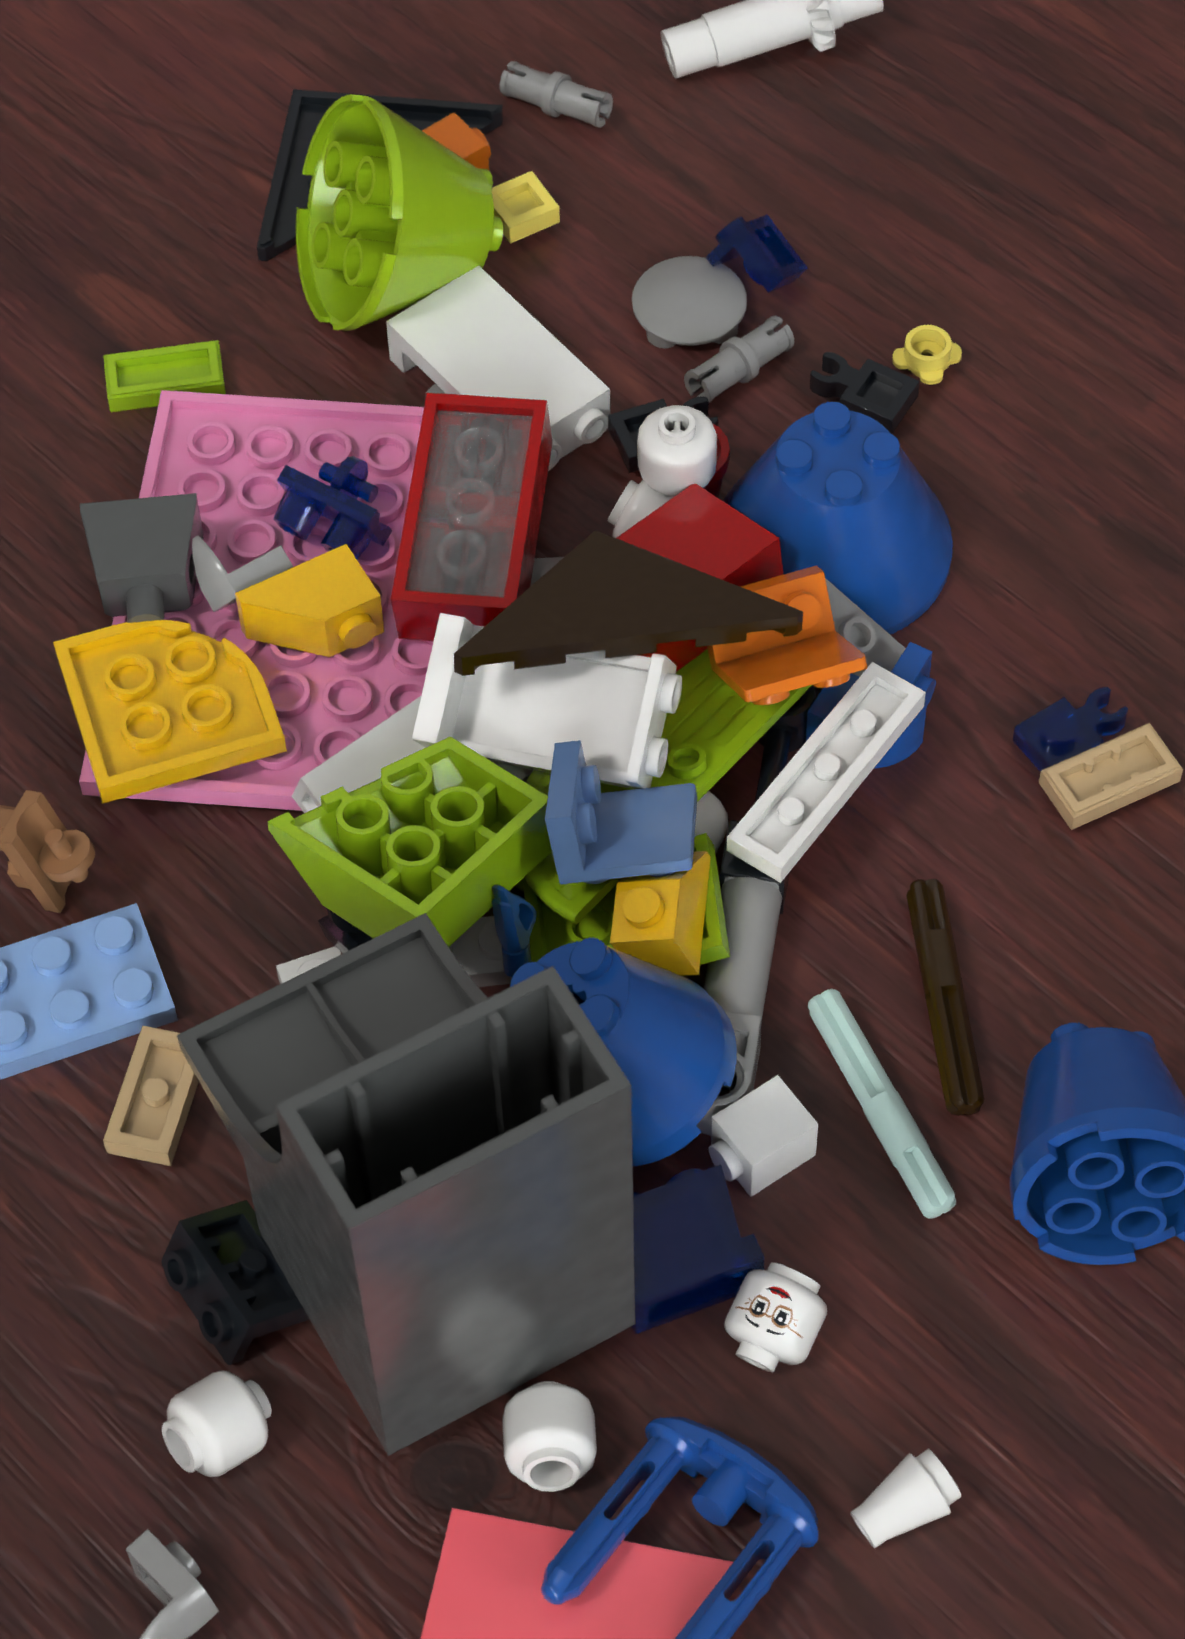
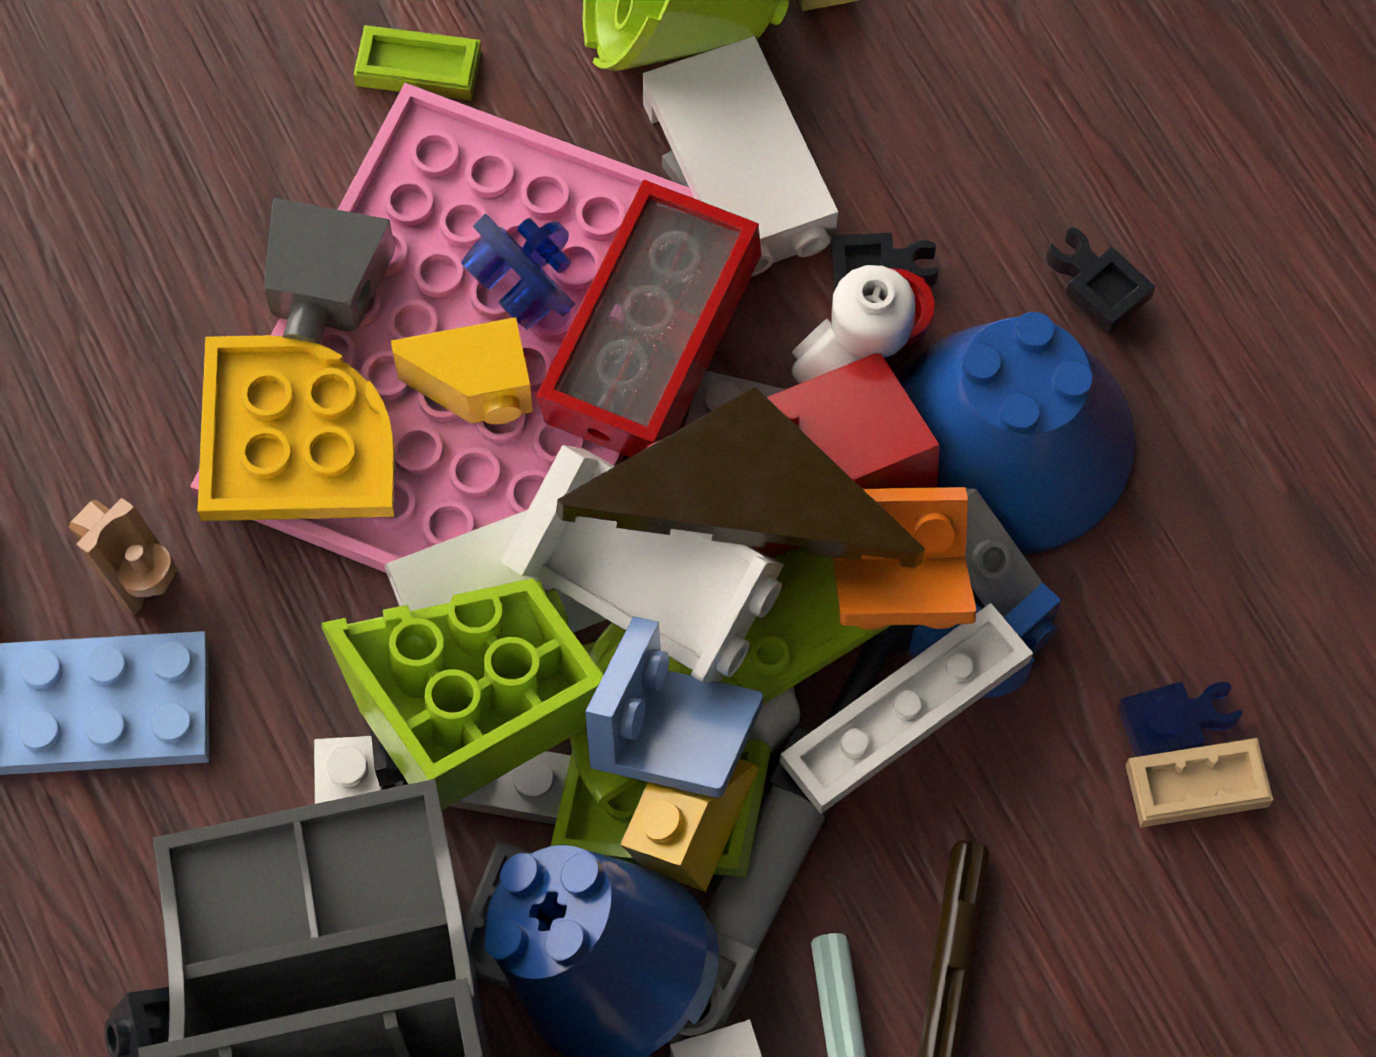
camera: 15 degrees right, 10 degrees up
(152, 1100) = (130, 864): tan plate -> none
(220, 586) = (410, 322): light grey plate -> none
(513, 923) = (543, 781): blue hand -> none
(689, 302) = (957, 127): light grey dish -> none
(739, 359) = (984, 208): light grey pin -> none
(764, 252) = (1046, 94): clear blue bracket -> none
(927, 353) = (1181, 240): light yellow plate -> none

